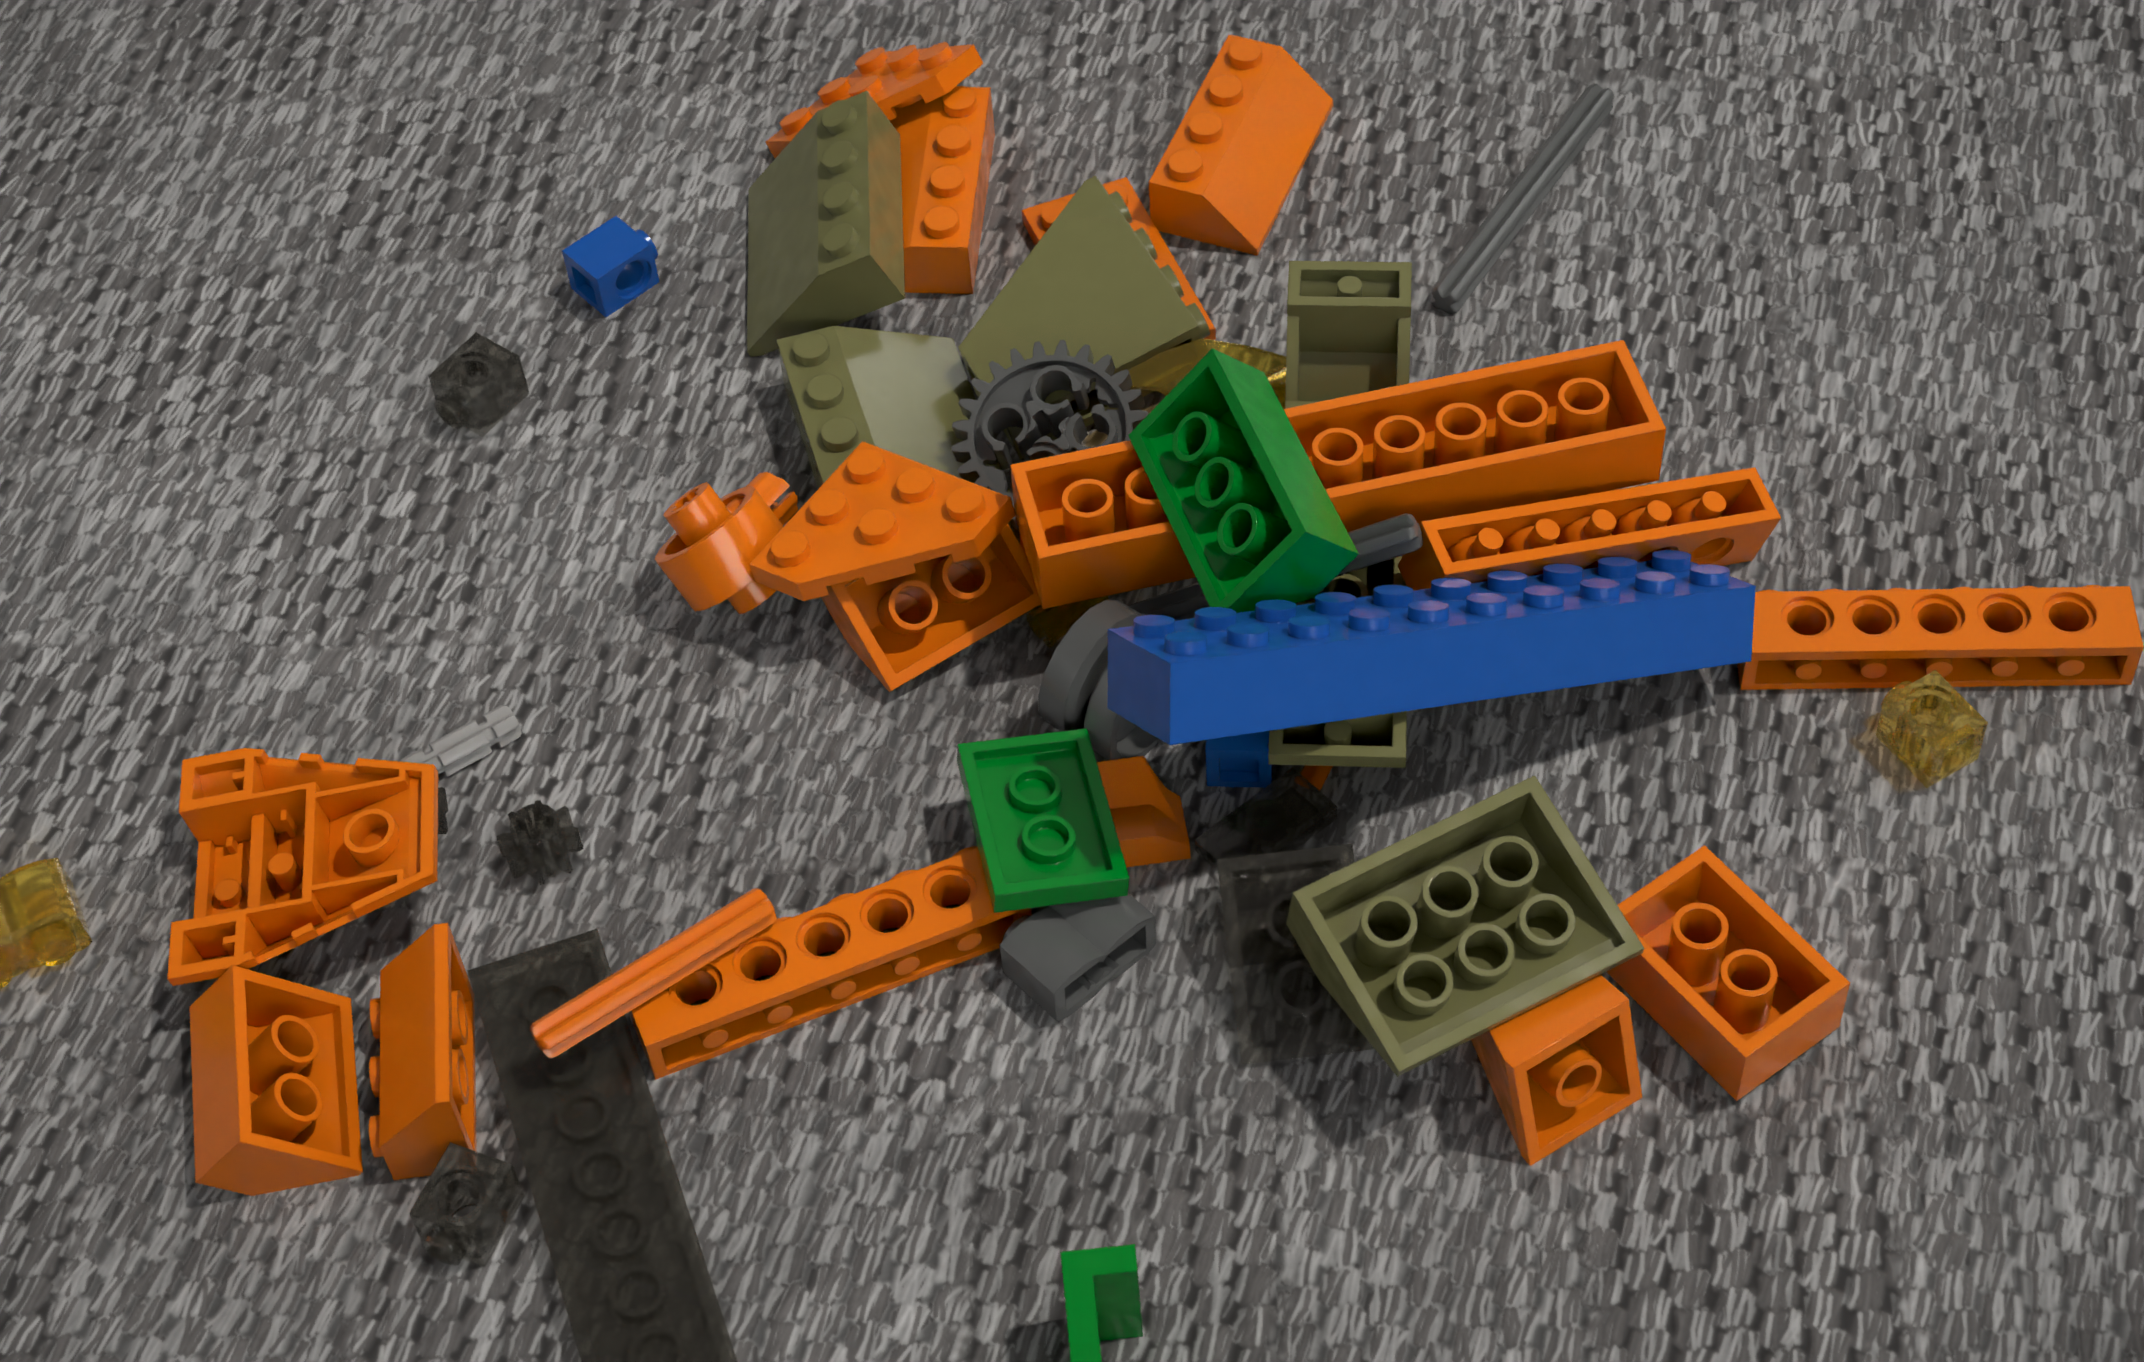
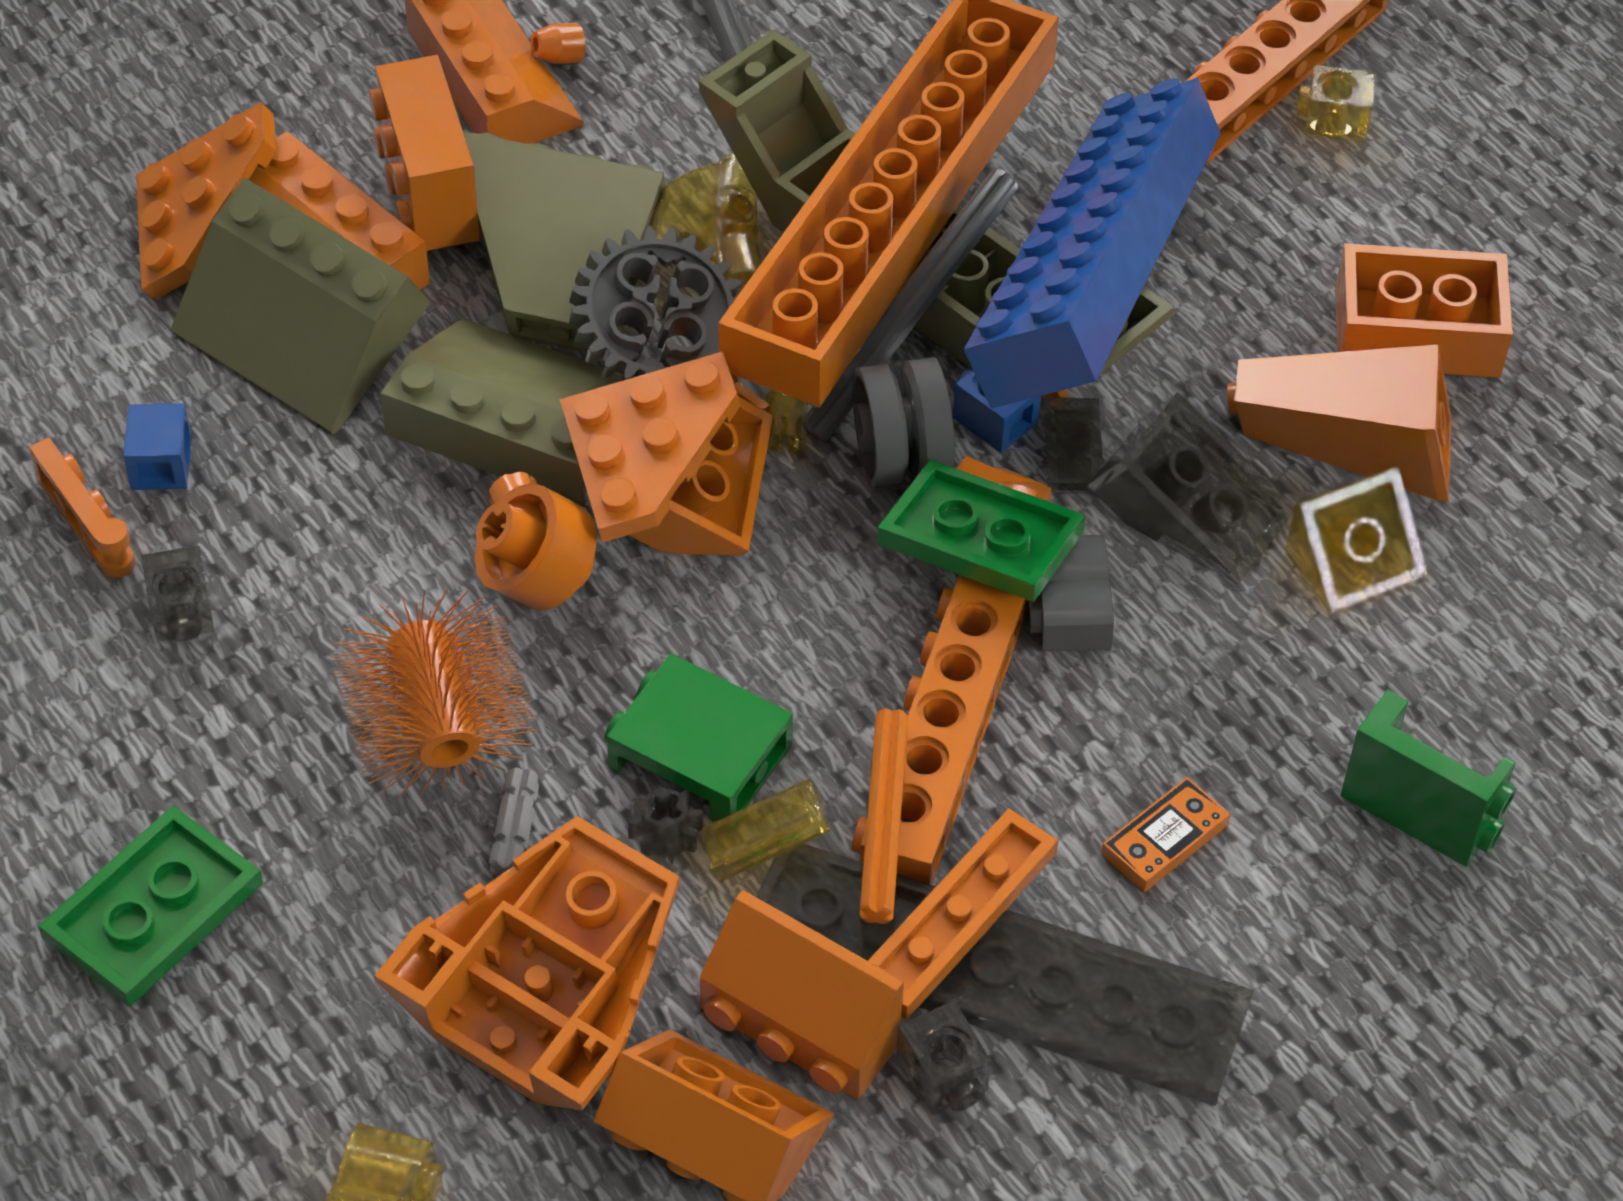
camera: 55 degrees left, 0 degrees up
(175, 592) = (150, 905): none -> green plate
(489, 592) = (433, 693): none -> orange piece
(507, 269) = (84, 511): none -> orange plate
(591, 911) = (765, 830): none -> clear yellow tile
(610, 1101) = (964, 906): none -> orange plate
(647, 803) = (701, 735): none -> green panel
(880, 1207) = (1165, 834): none -> tile
(1041, 163) = (425, 152): none -> orange brick
(1240, 488) = (896, 224): green slope -> none
(1312, 170) = (559, 43): none -> orange hose
(1366, 1123) = (1356, 540): none -> clear yellow slope
(1461, 926) = (1305, 384): olive slope -> none
(1710, 516) = (1061, 124): orange brick -> none

